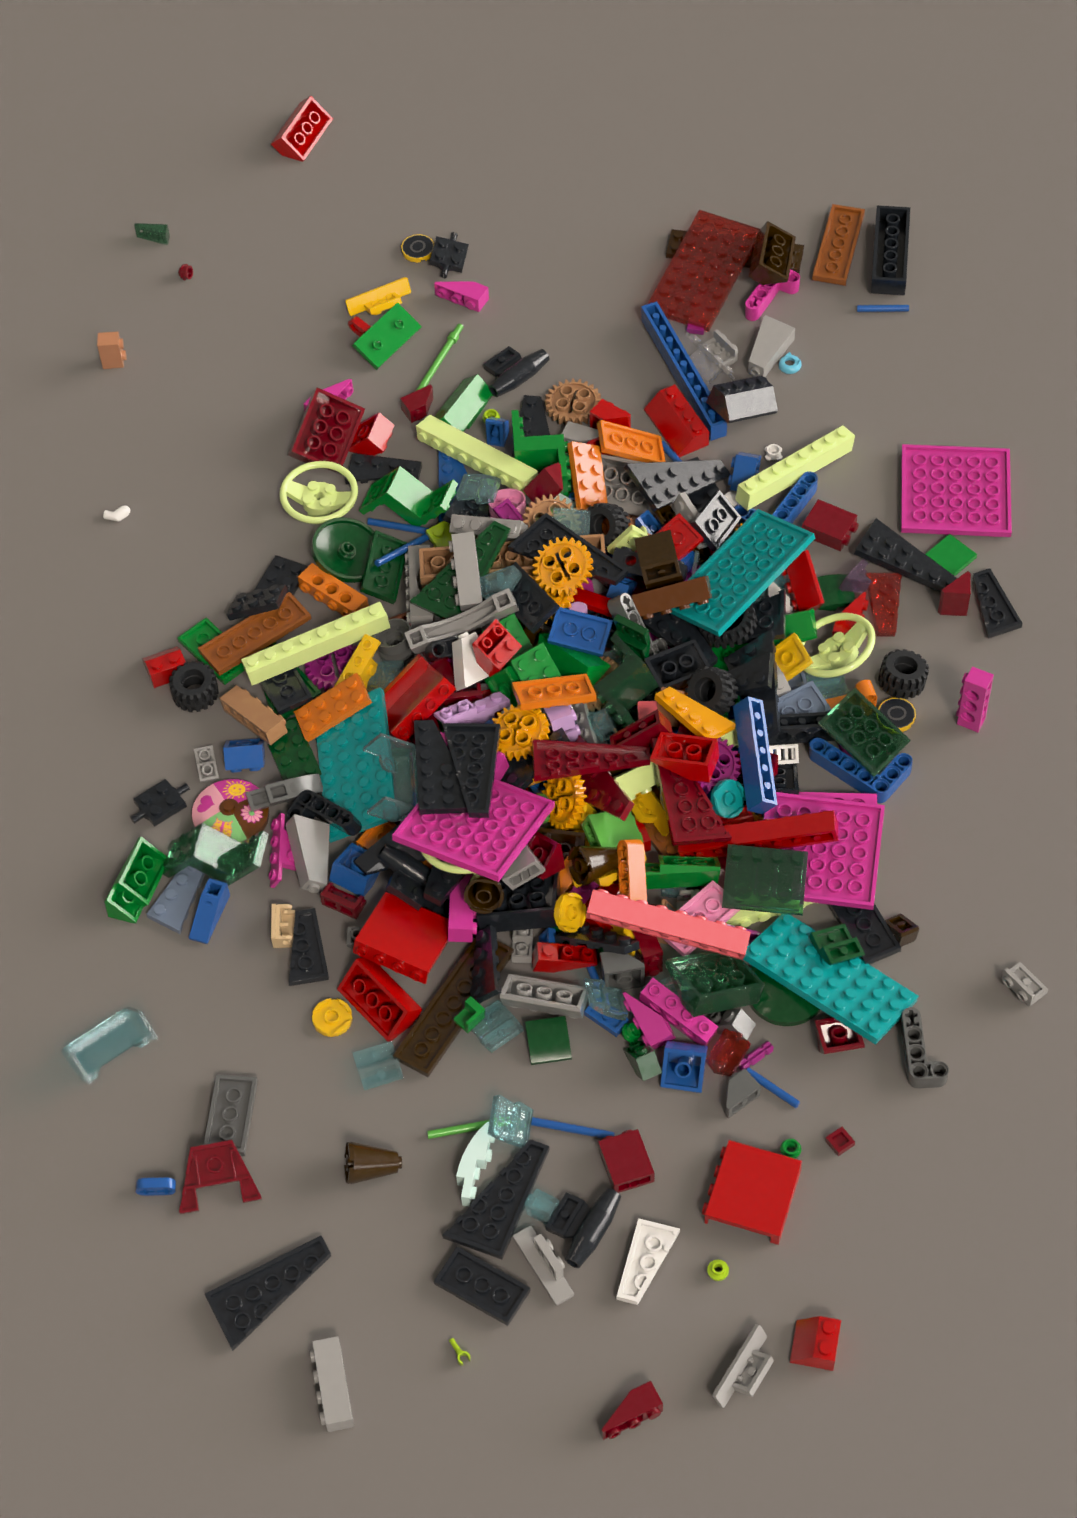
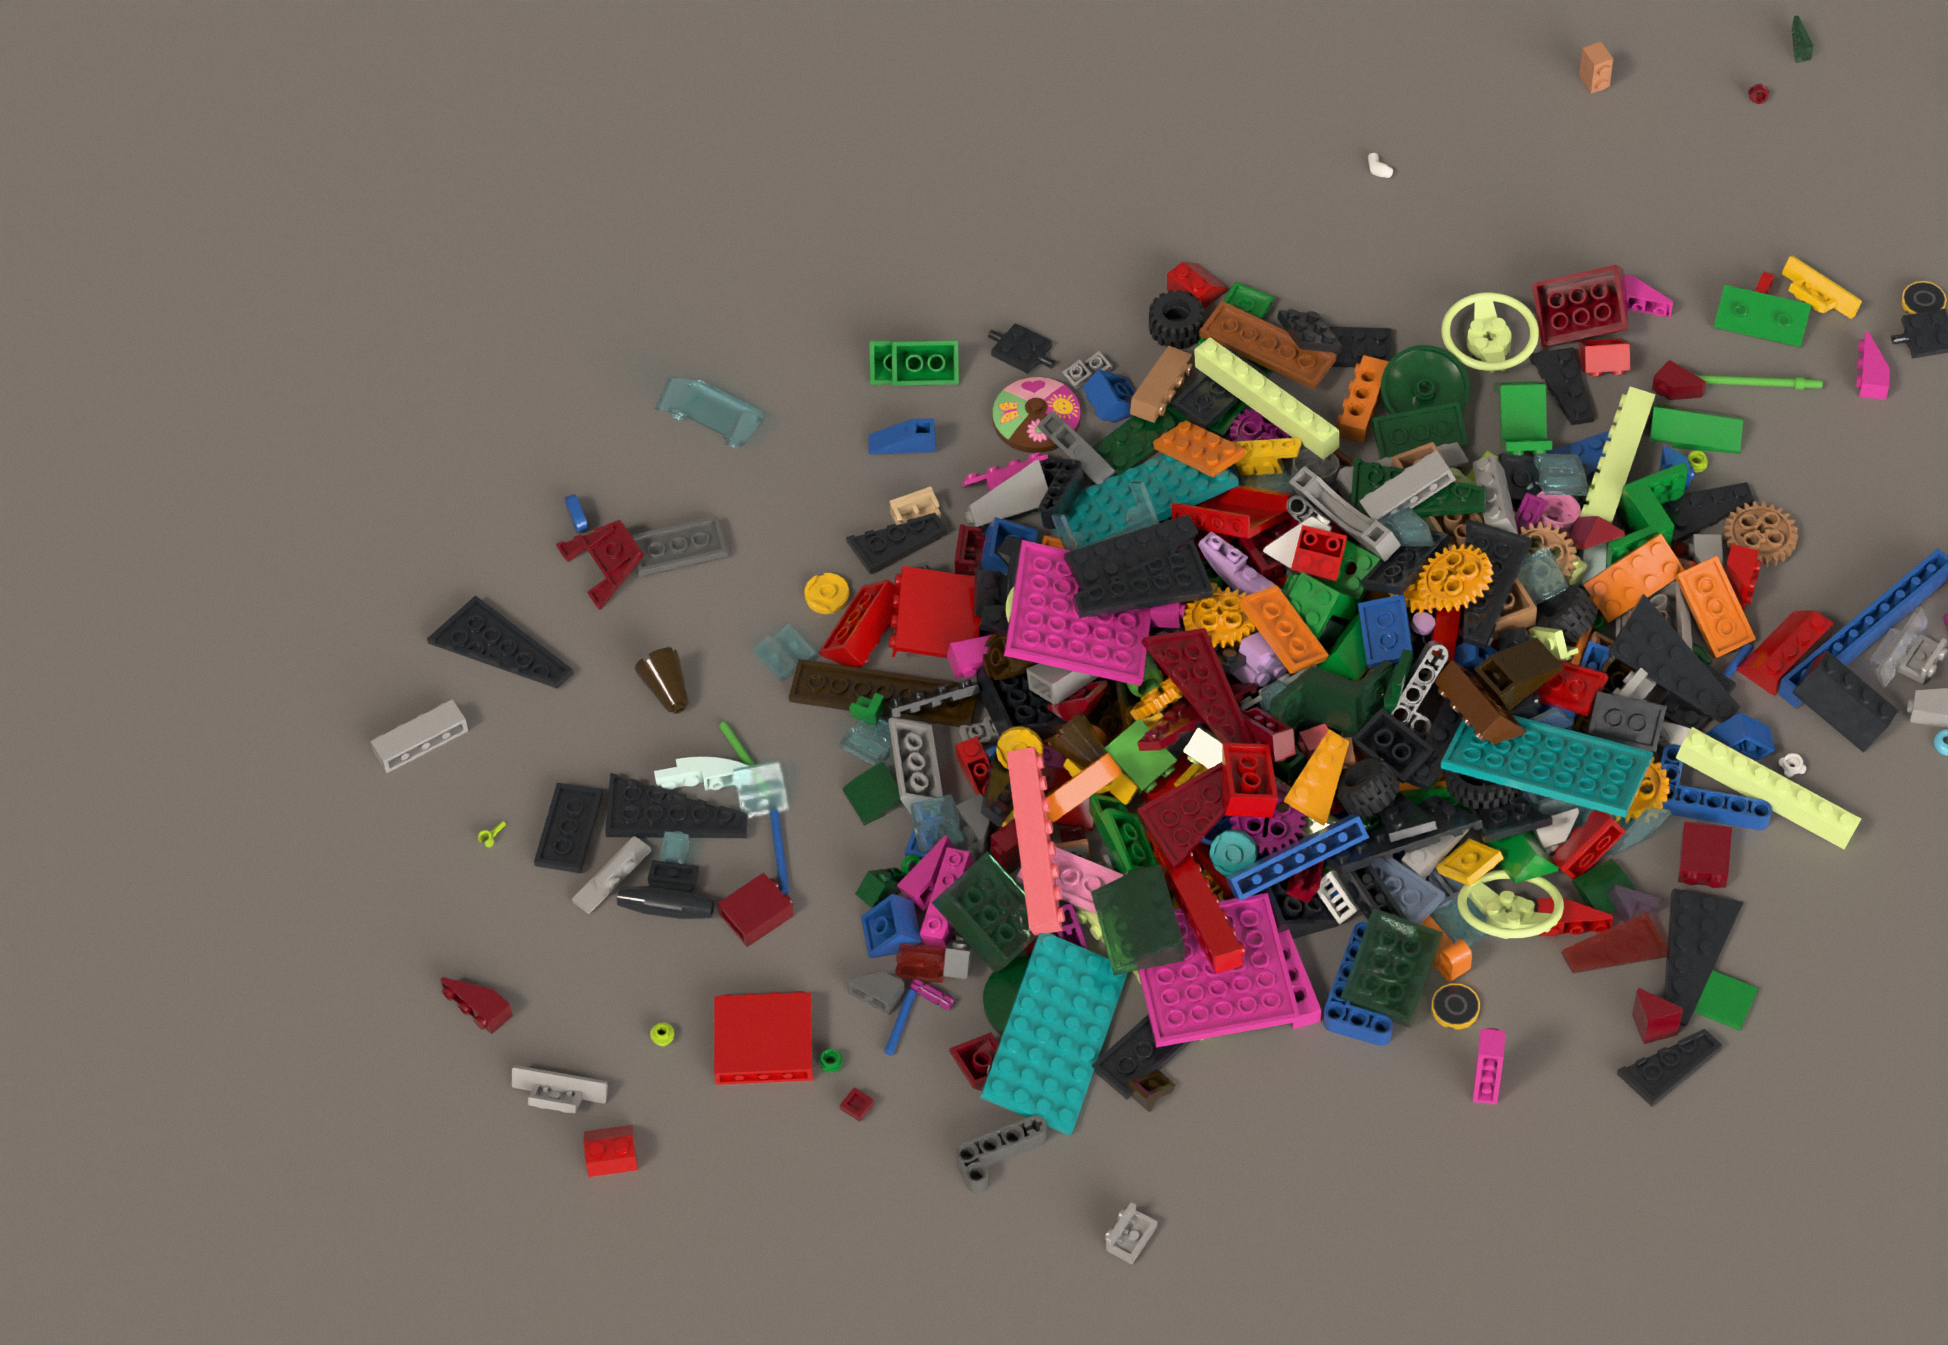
camera: 70 degrees right, 0 degrees up
(175, 901) = (901, 406): sand blue wing -> none
(215, 854) = (966, 412): clear green bracket -> none
(397, 526) = (1490, 424): blue bar -> none
(401, 550) = (1448, 438): blue bar -> none
(513, 369) = (1779, 457): black plate -> none
(646, 1254) = (652, 962): white wing -> none
(836, 944) = (1097, 1026): dark green slope -> none
(903, 674) = (1514, 975): black tyre -> none
(956, 490) = (1832, 977): dark pink plate -> none

